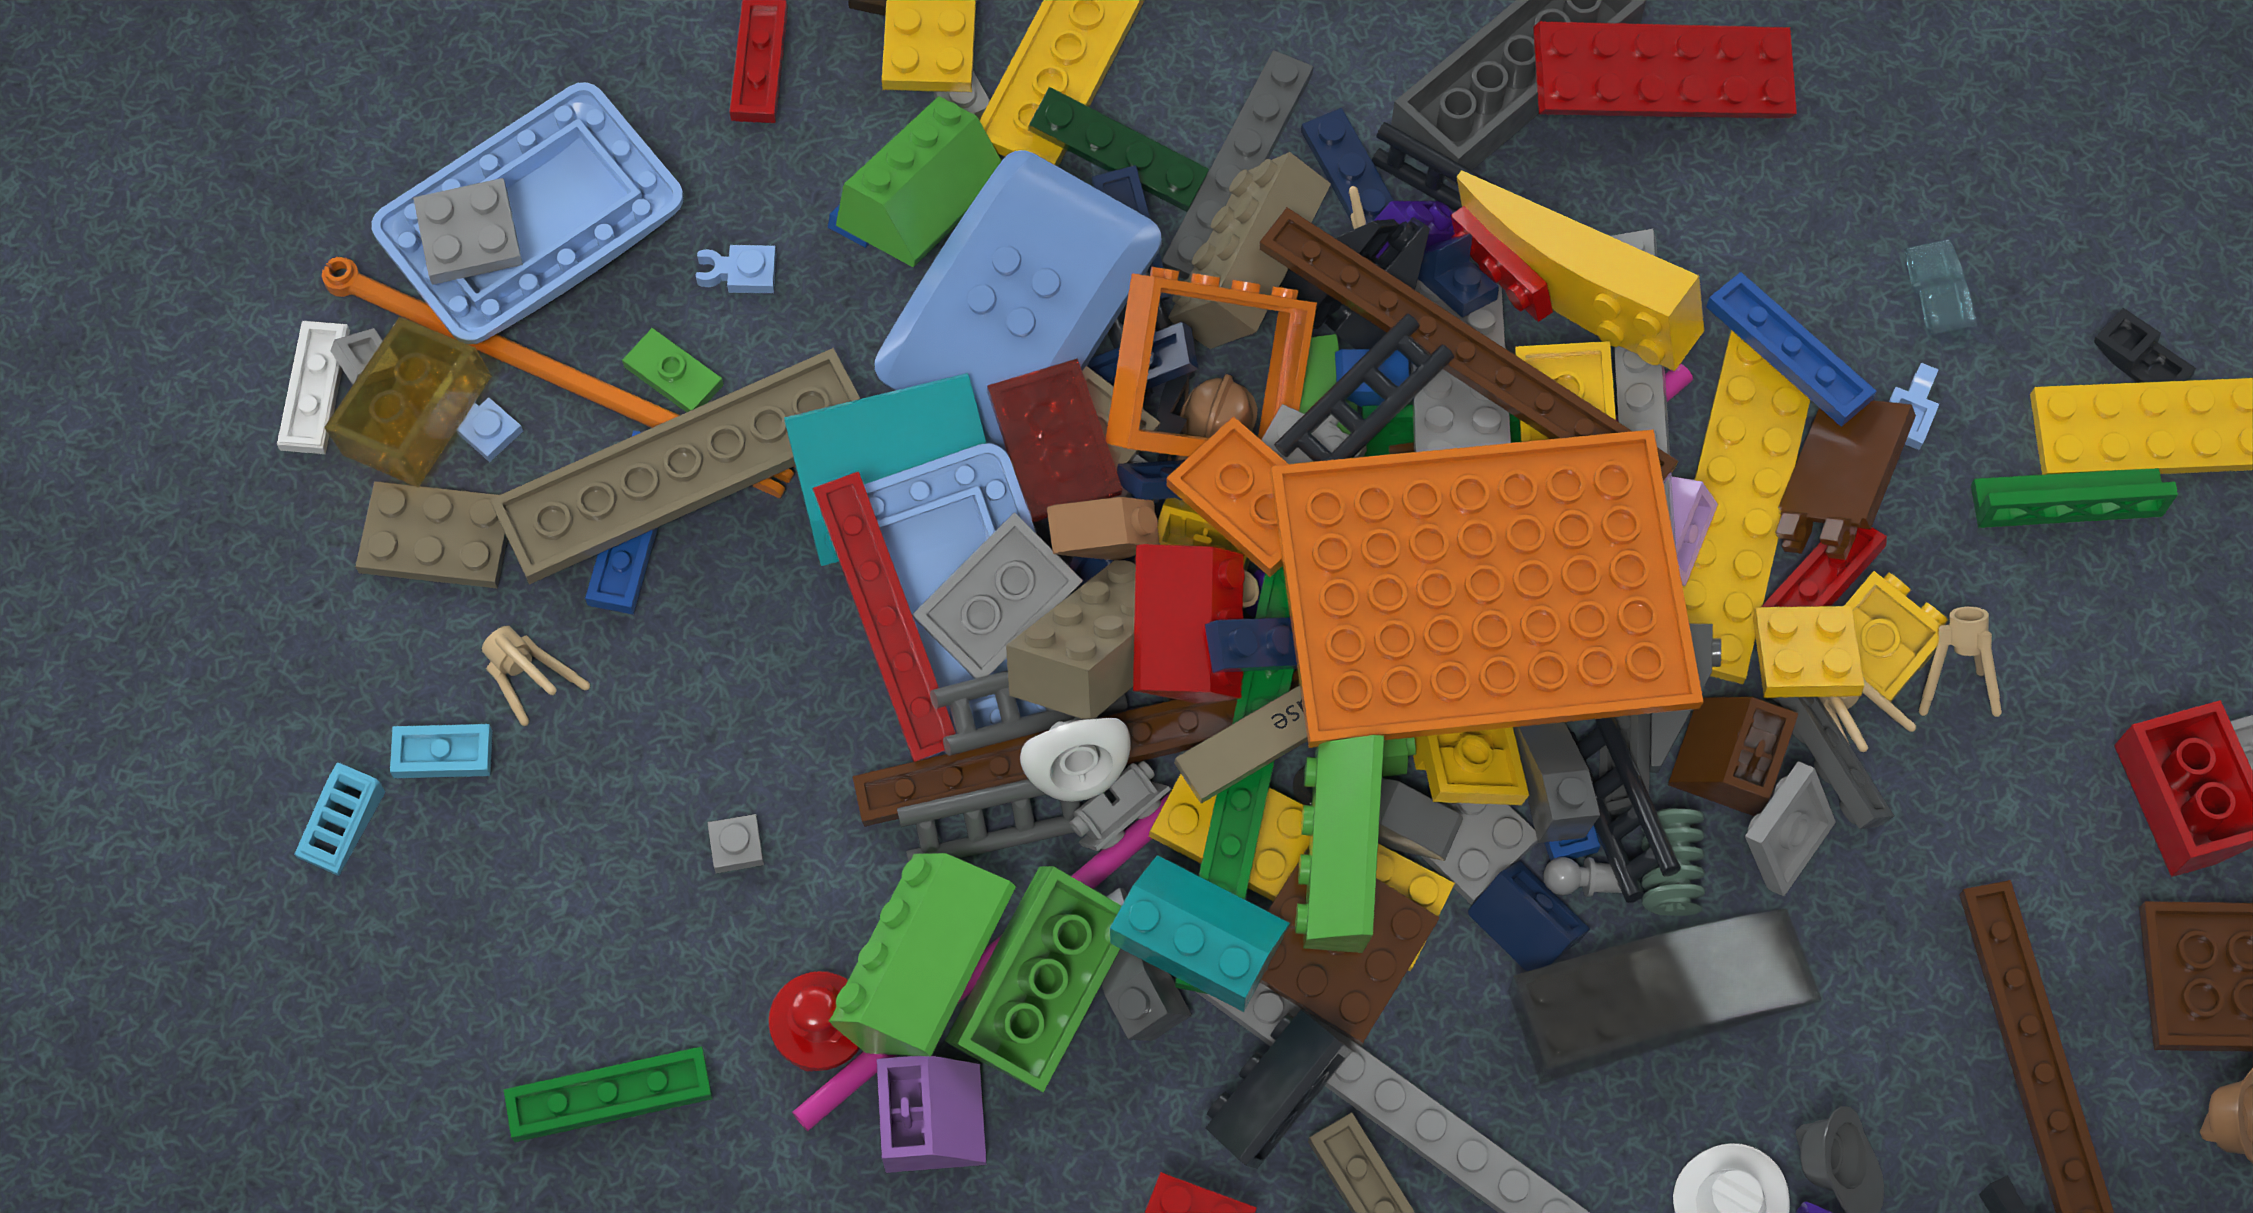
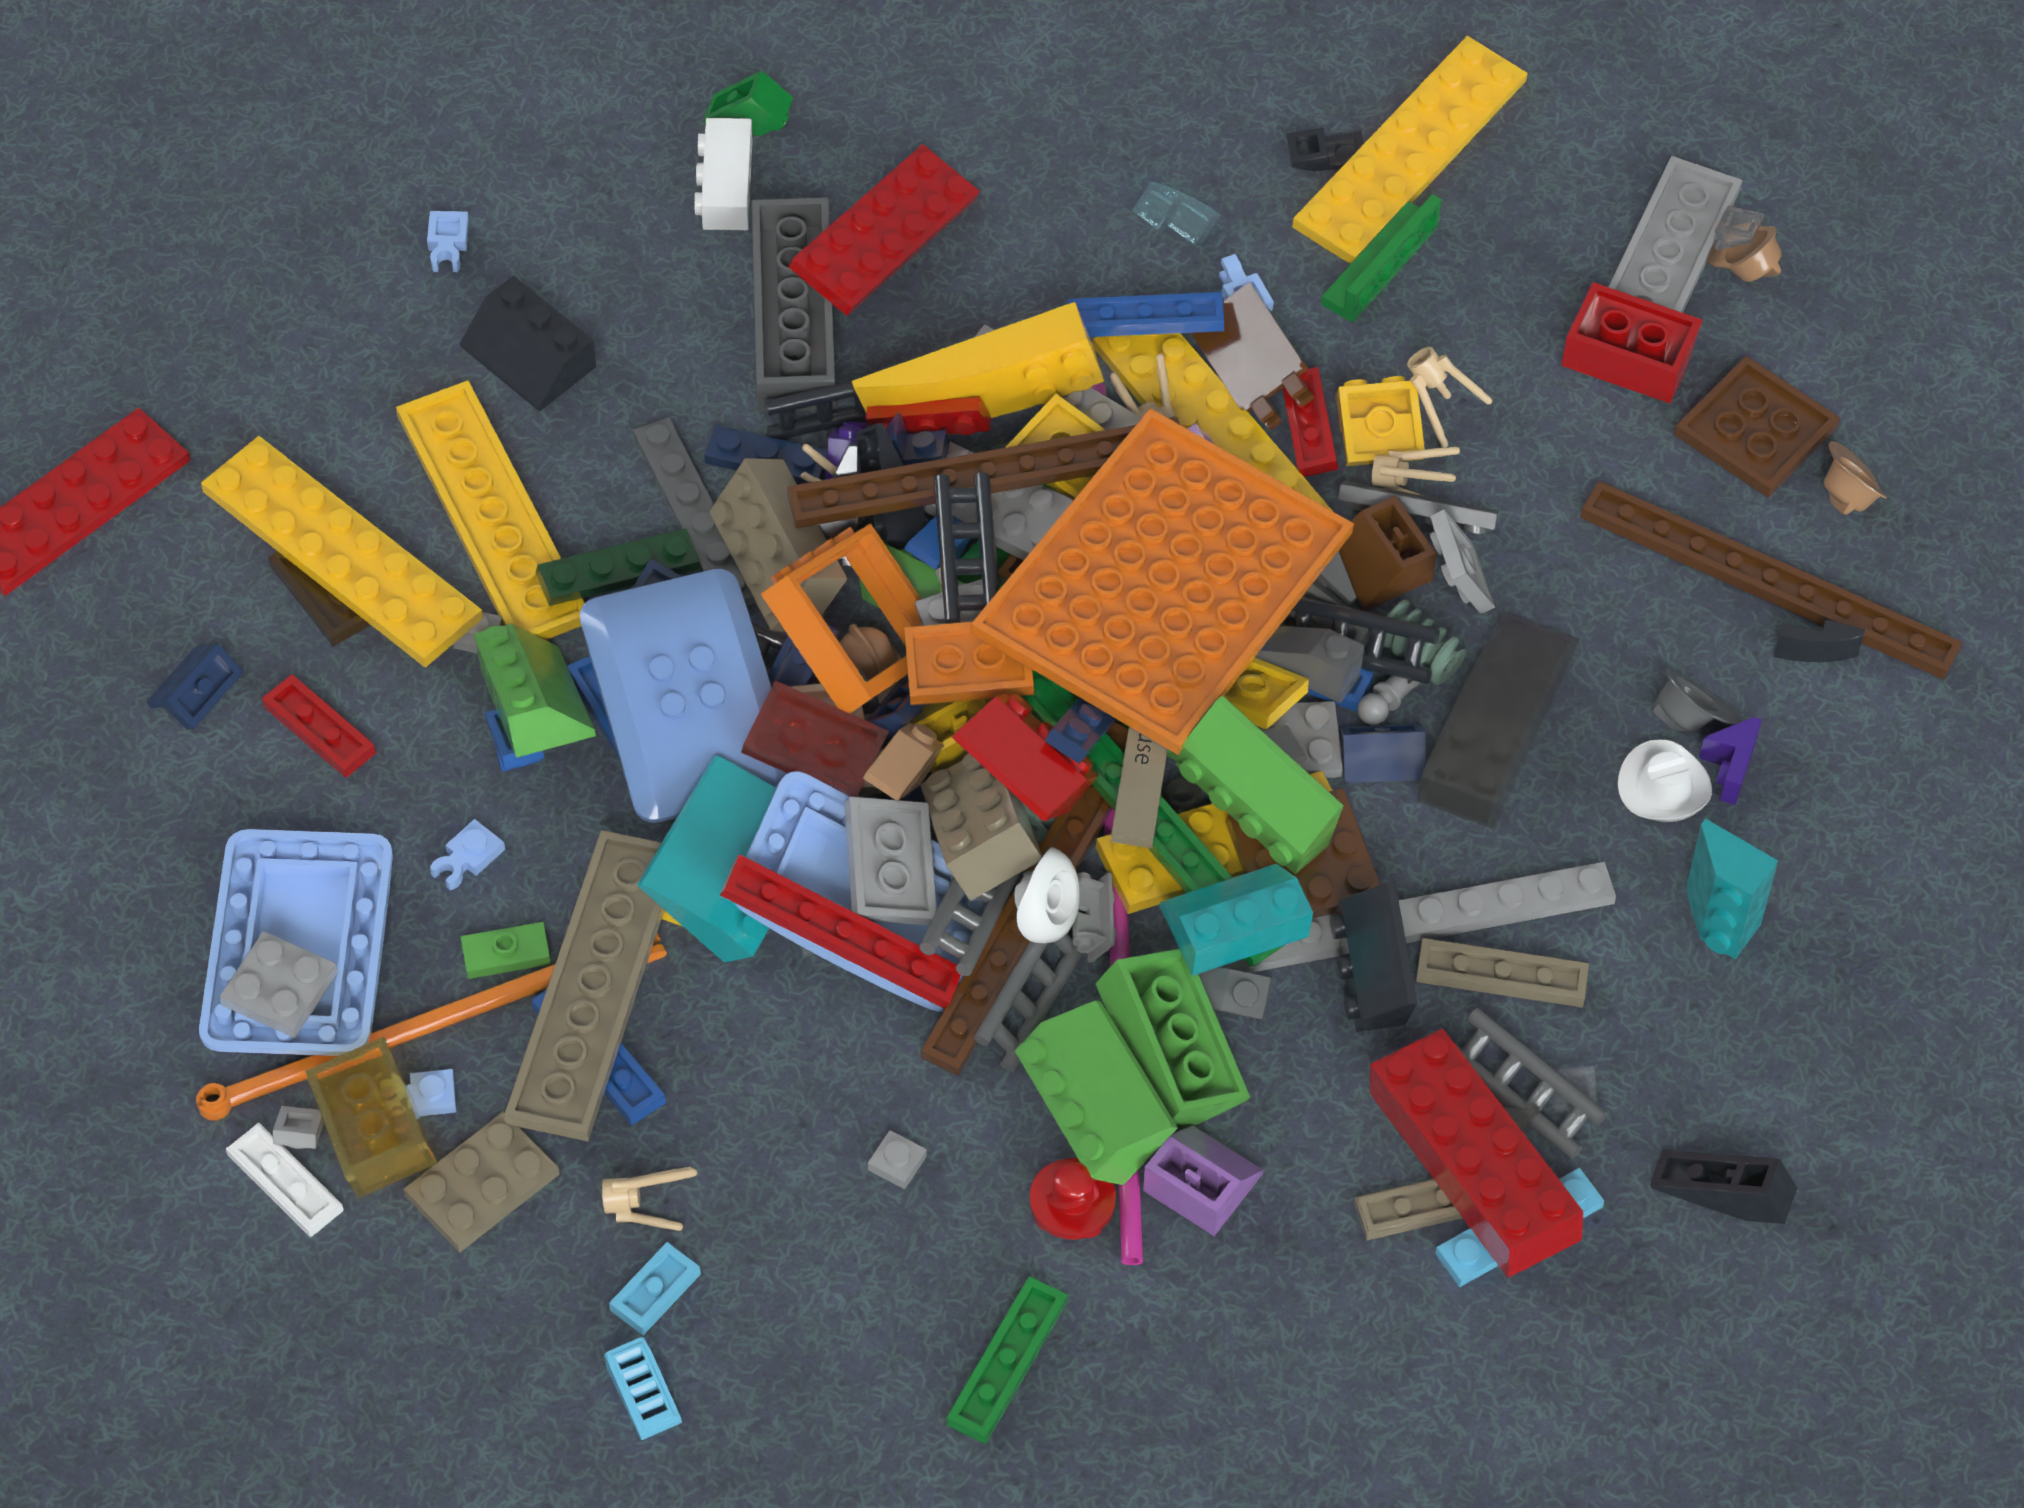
camera: 50 degrees left, 10 degrees down
(1688, 439) = (1166, 409): none -> tan plant
(1808, 651) = (1358, 461): yellow plate -> none

